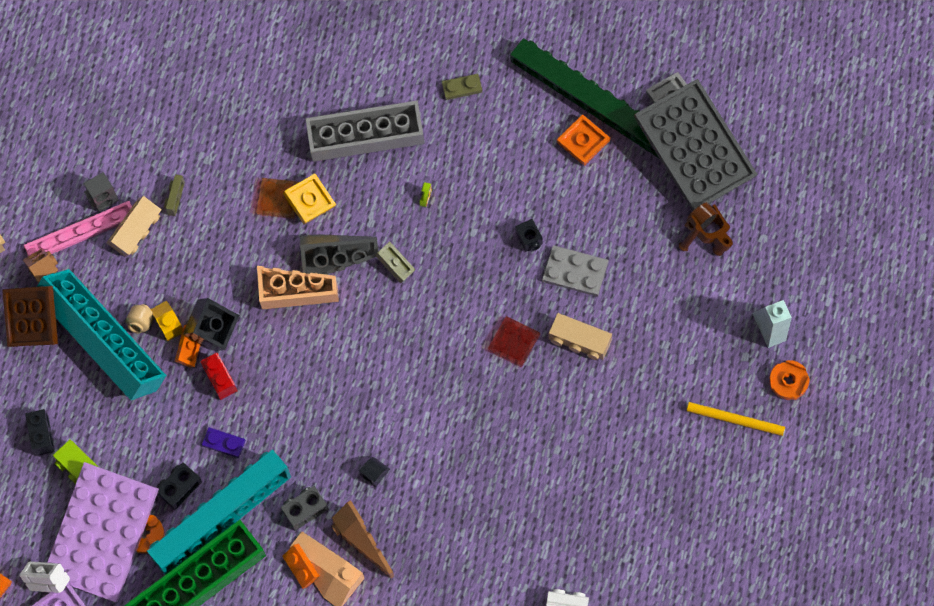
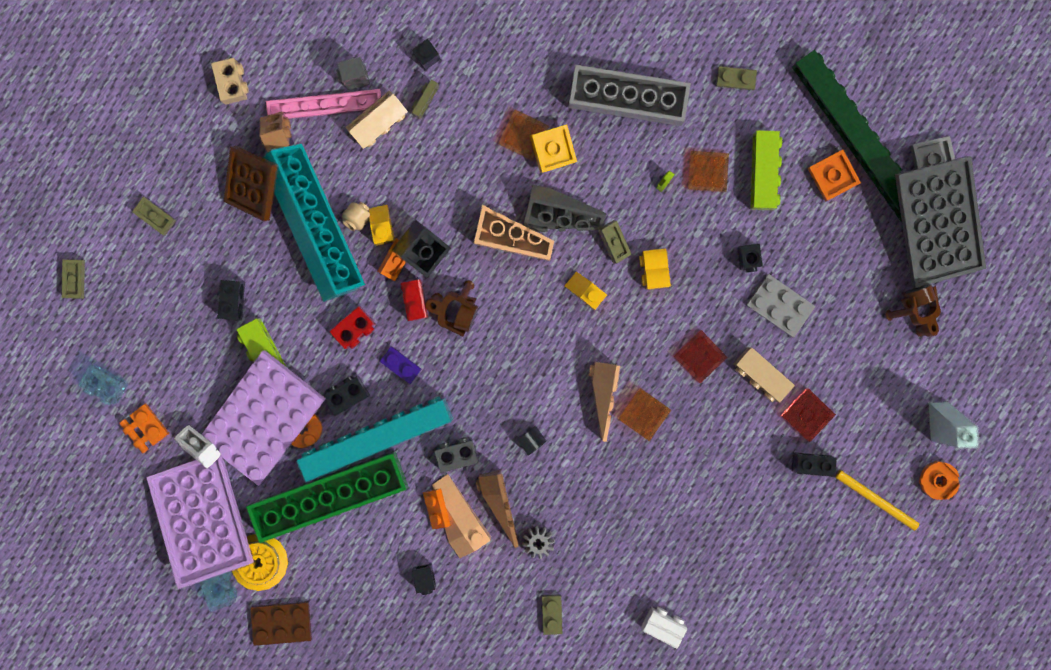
camera: 15 degrees right, 20 degrees up
(162, 419) = (350, 323): none -> red brick
(164, 156) = (426, 54): none -> black brick
(272, 371) = (466, 314): none -> reddish brown piece
(383, 316) = (585, 290): none -> yellow slope
(407, 570) = (543, 538): none -> light grey gear
(427, 395) = (604, 383): none -> light nougat wedge
(442, 274) = (655, 269): none -> yellow brick
(463, 174) = (708, 171): none -> clear orange plate
(477, 411) = (644, 414): none -> clear orange plate
(516, 155) = (765, 170): none -> lime brick
(637, 360) = (808, 415): none -> clear red plate
(659, 402) = (814, 464): none -> black brick

